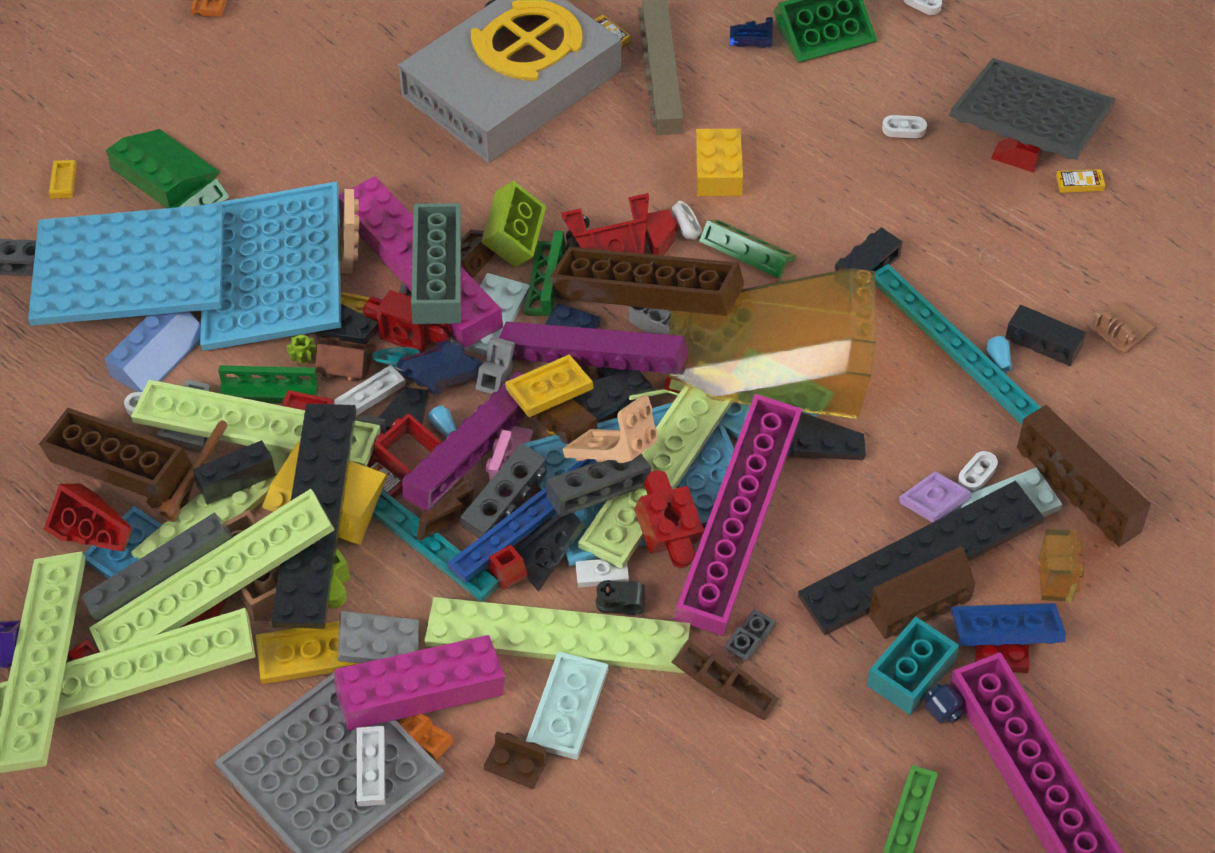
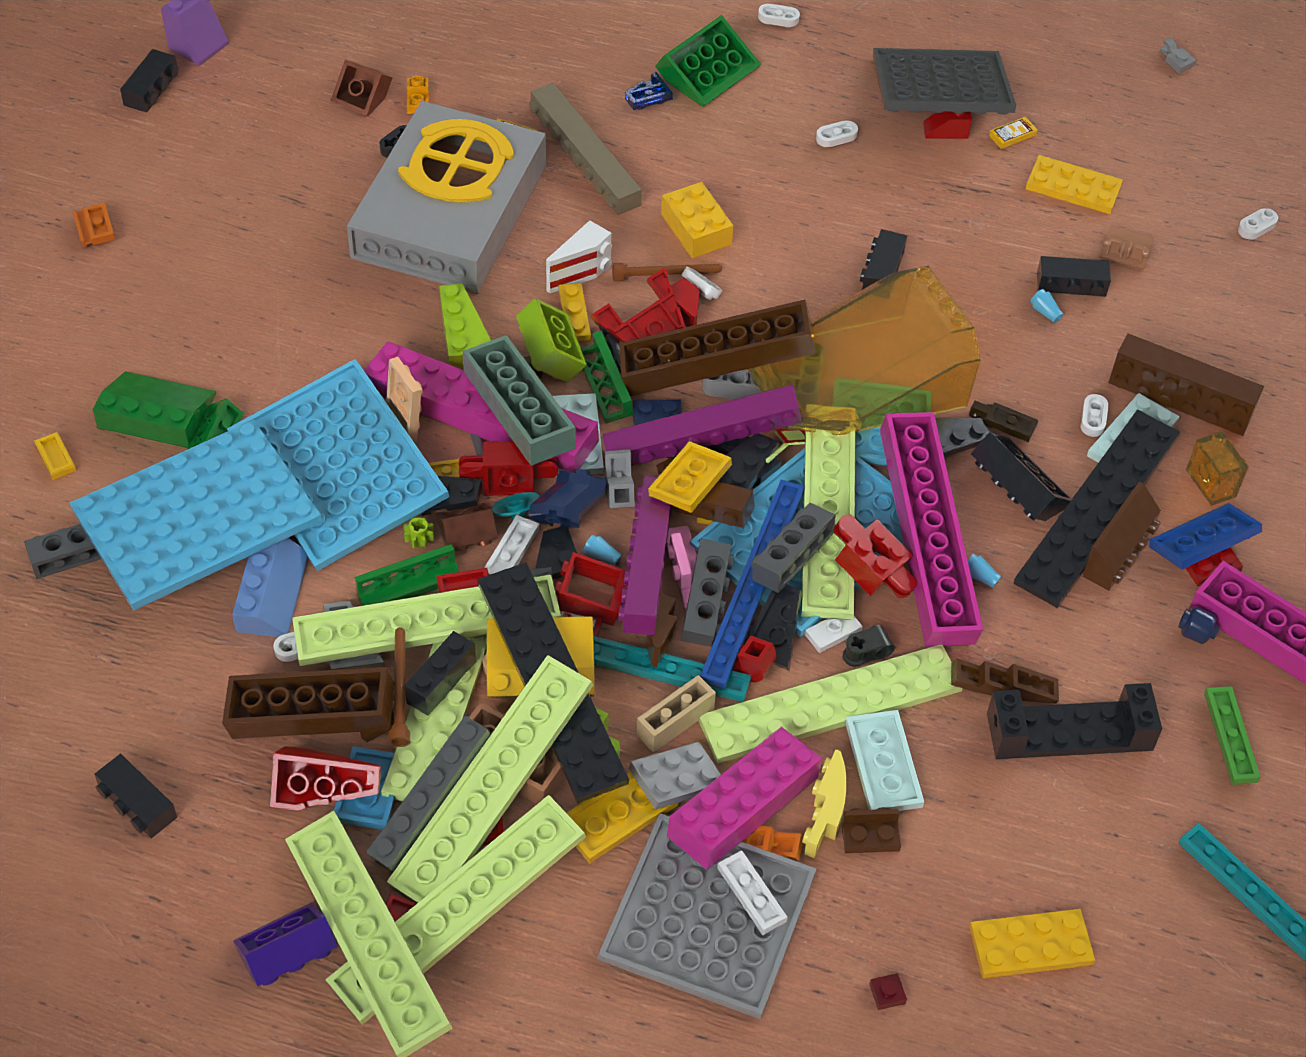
camera: 30 degrees left, 0 degrees up
(410, 587) = (675, 713): none -> tan brick
(451, 179) = (460, 322): none -> lime wedge
(499, 715) = (829, 804): none -> light yellow slope
(561, 201) = (574, 305): none -> yellow plate
(586, 161) = (580, 257): none -> white slope
(622, 186) = (623, 271): none -> dark orange piece
(623, 445) = (795, 505): light nougat bracket -> none
(746, 247) = (769, 289): green fence -> none
(751, 635) = (998, 633): dark grey slope -> none
(759, 746) = (1074, 728): none -> black plate
(770, 571) = (982, 571): none -> medium azure cone
(866, 501) = (1020, 477): none -> black slope
(887, 444) = (1005, 420): none -> dark brown hinge
(912, 665) = (1154, 602): teal brick -> none
(935, 497) = (1075, 450): lavender tile -> none
(955, 344) = (1026, 319): teal plate -> none
(1109, 249) = (1074, 184): none -> yellow plate

